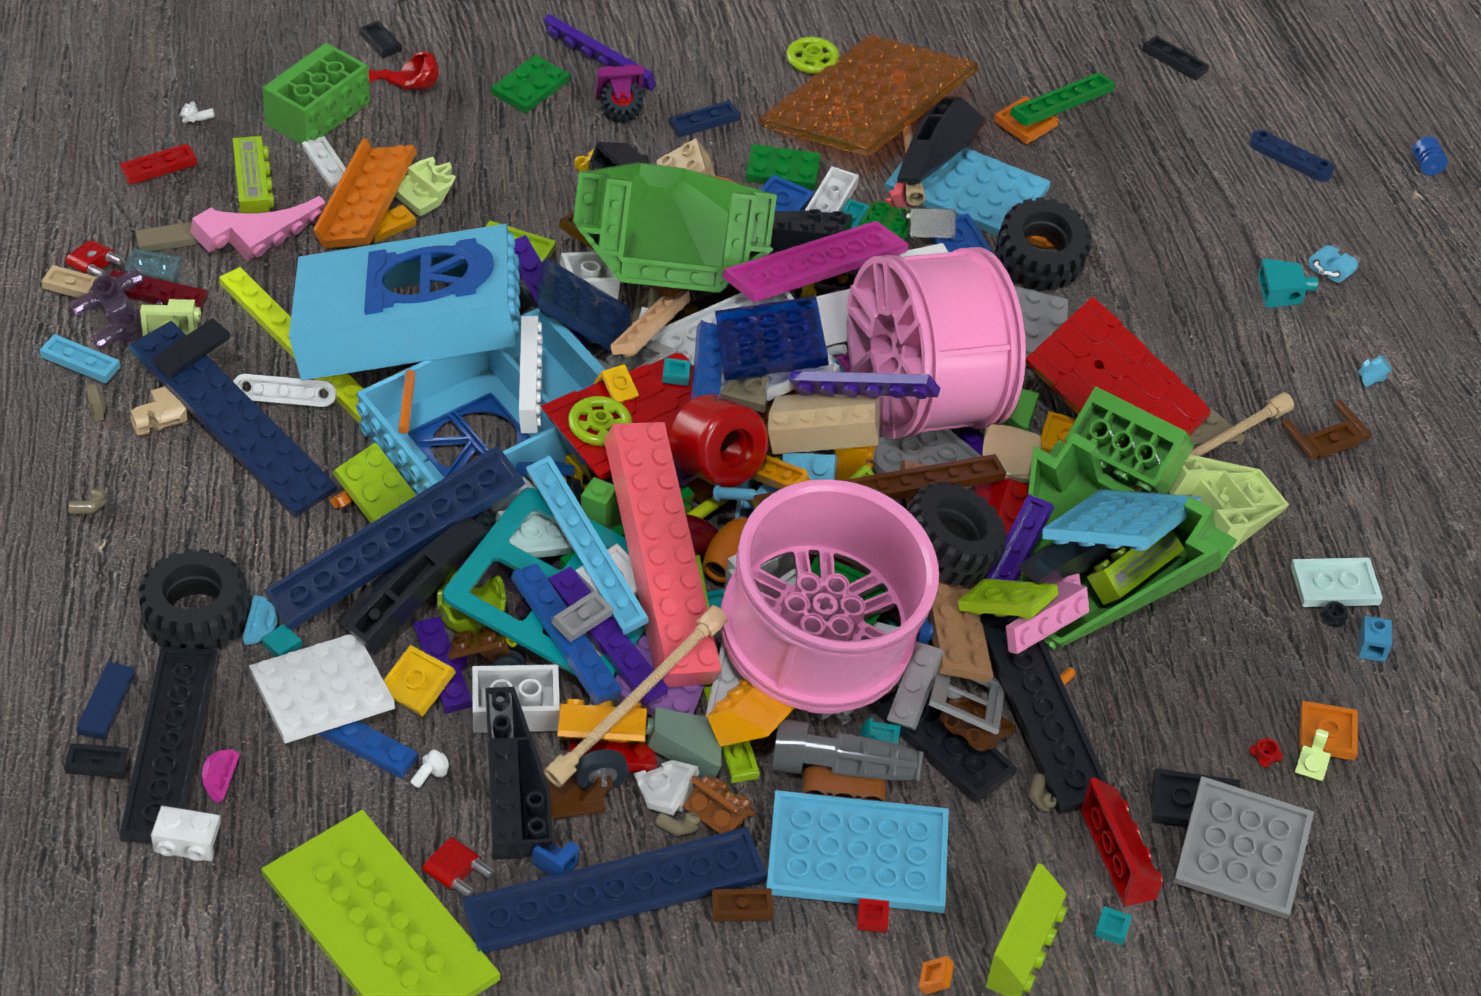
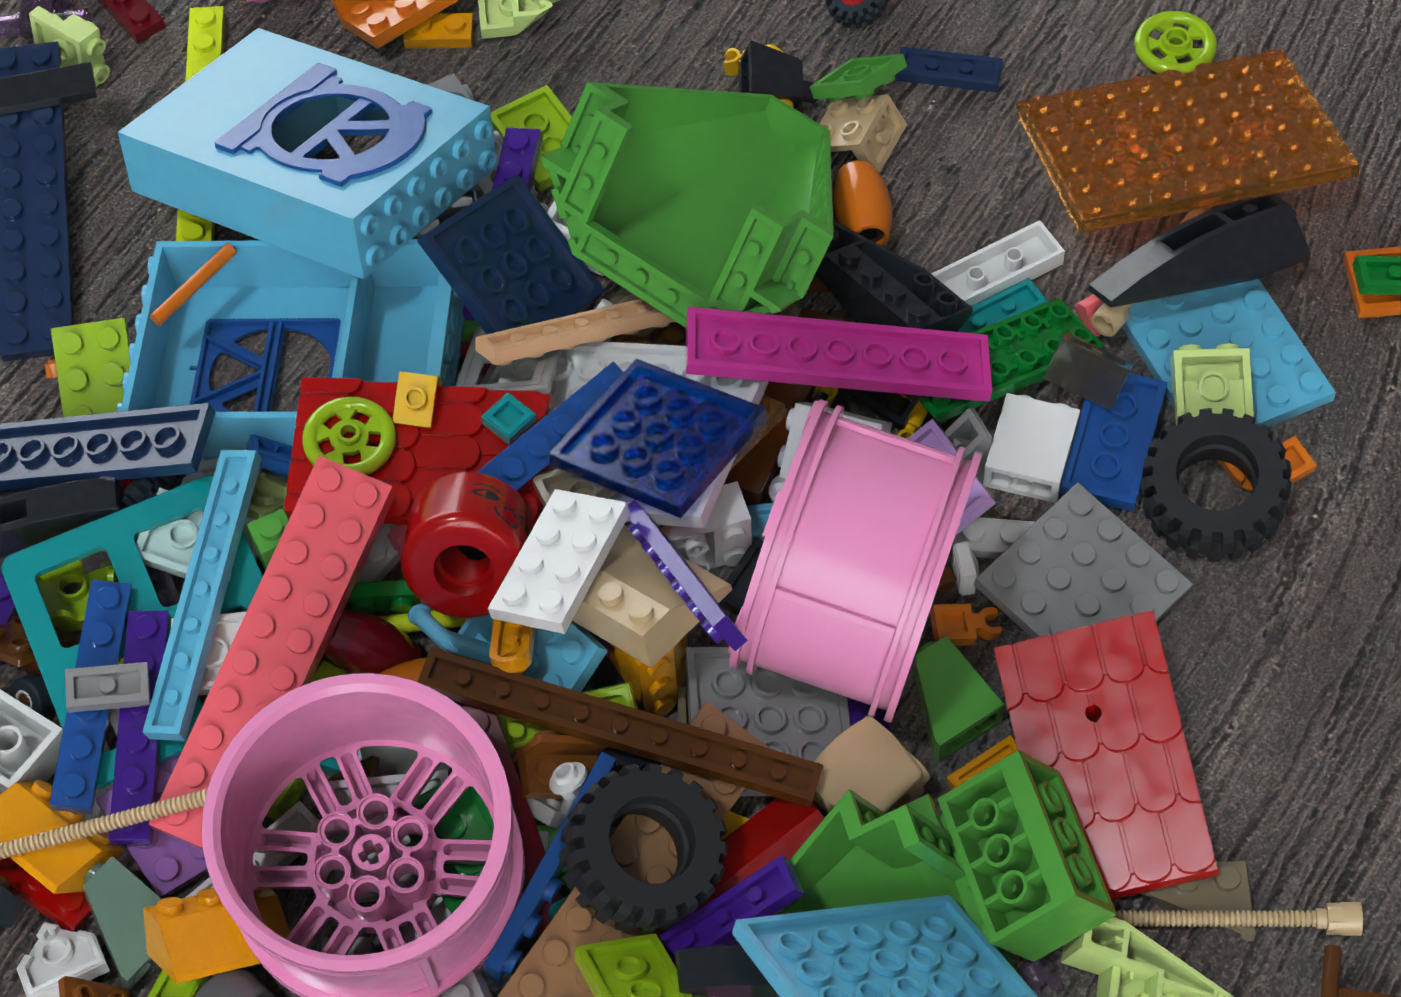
camera: 45 degrees right, 10 degrees up
(287, 390) = (112, 184): white plate -> none
(530, 374) = (336, 325): white piece -> none
(667, 138) = (858, 77): none -> bright green plate
(789, 195) = (937, 233): blue plate -> none
(790, 164) = (987, 188): green plate -> none
(790, 413) = (559, 561): none -> white plate
(994, 197) = (1211, 379): none -> yellowish green plate

